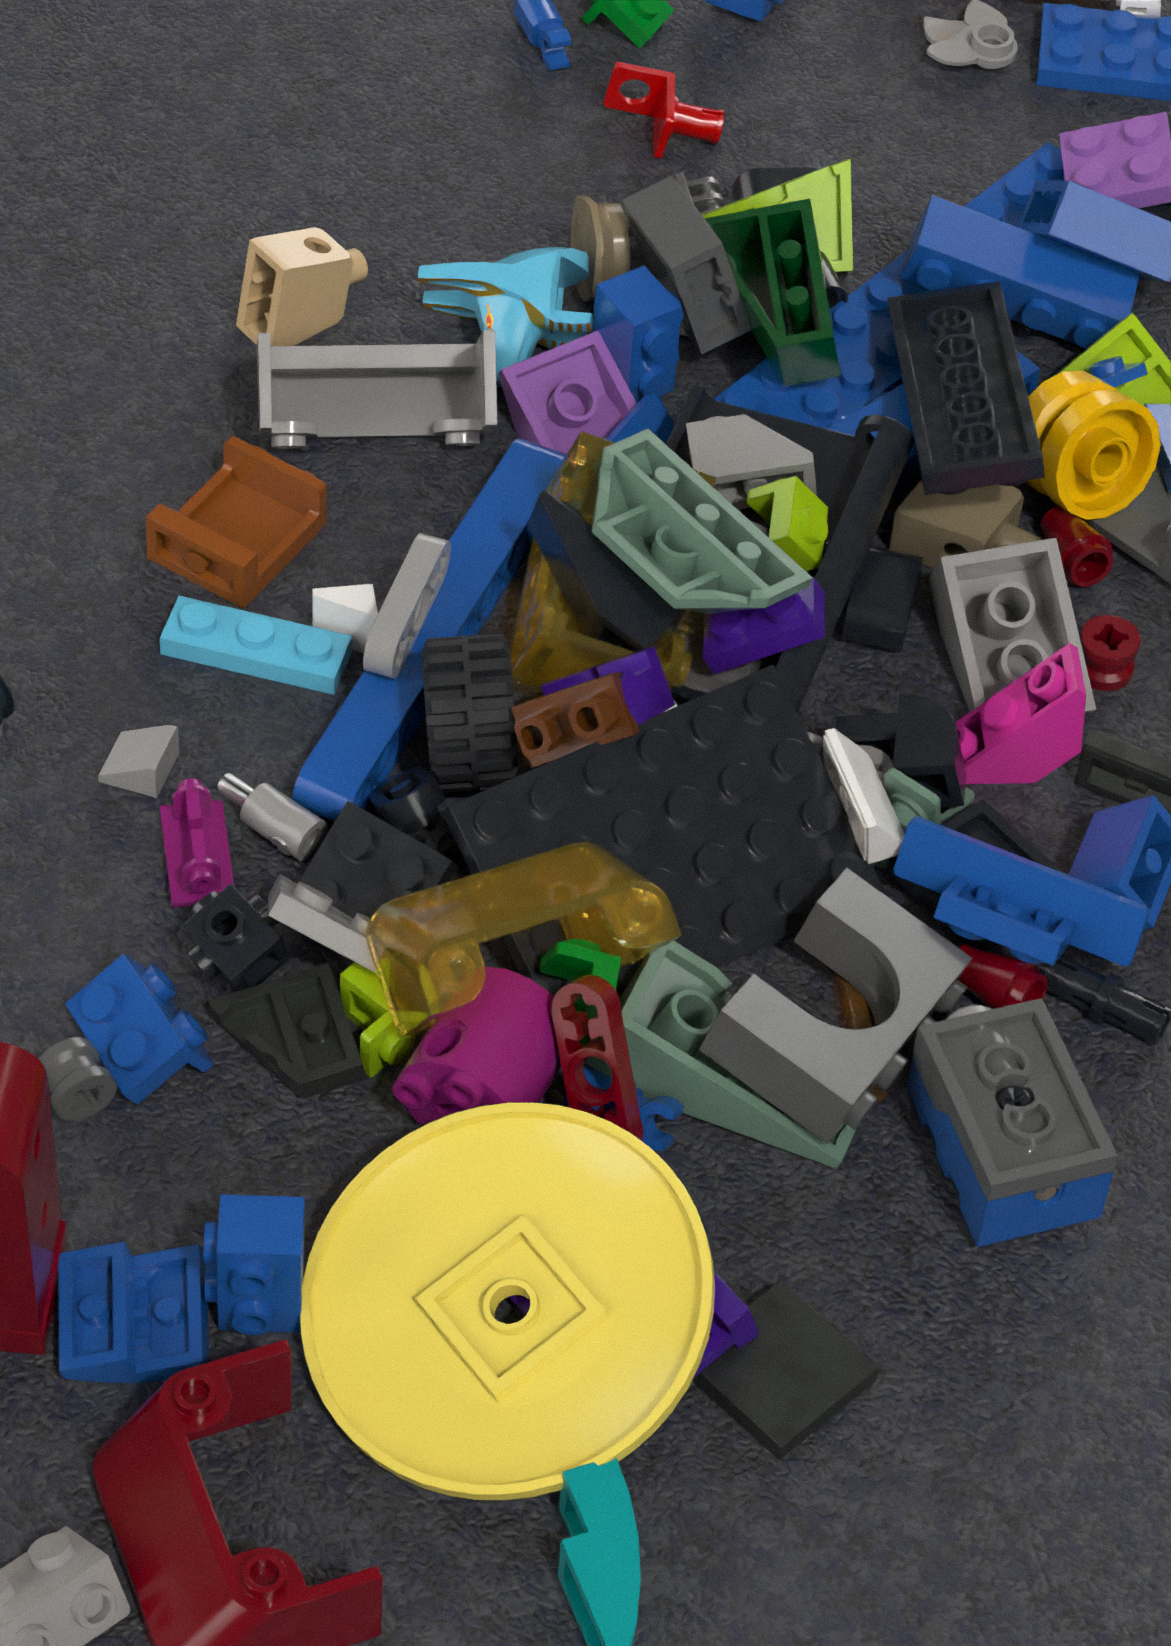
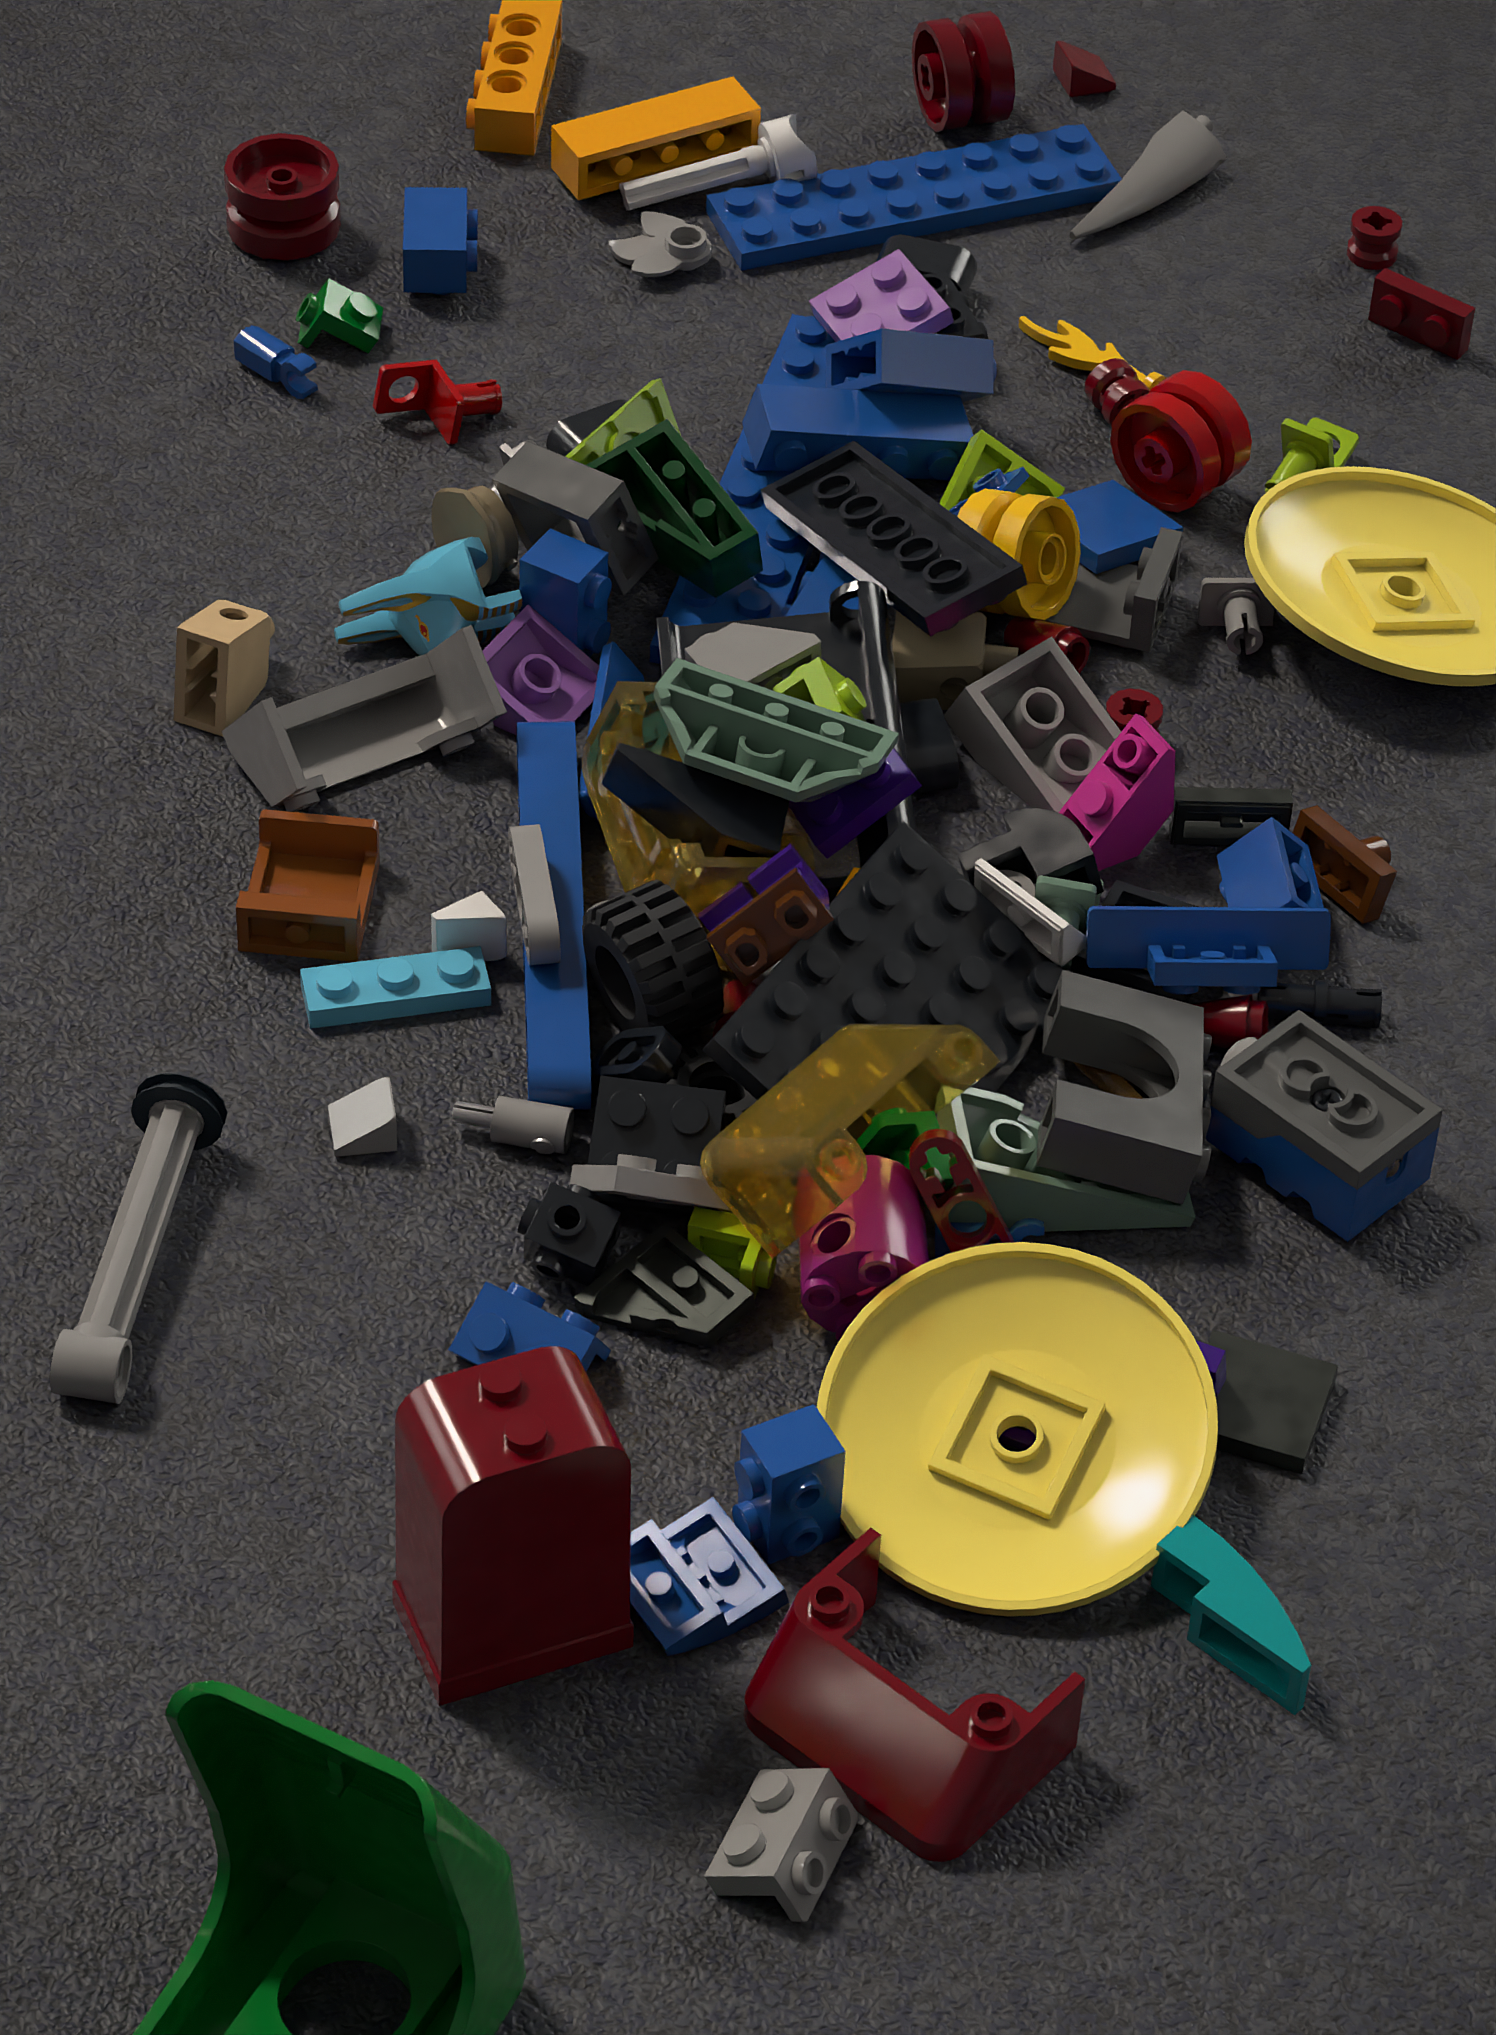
camera: 25 degrees left, 5 degrees down
(195, 844) = (468, 1175): magenta hinge -> none

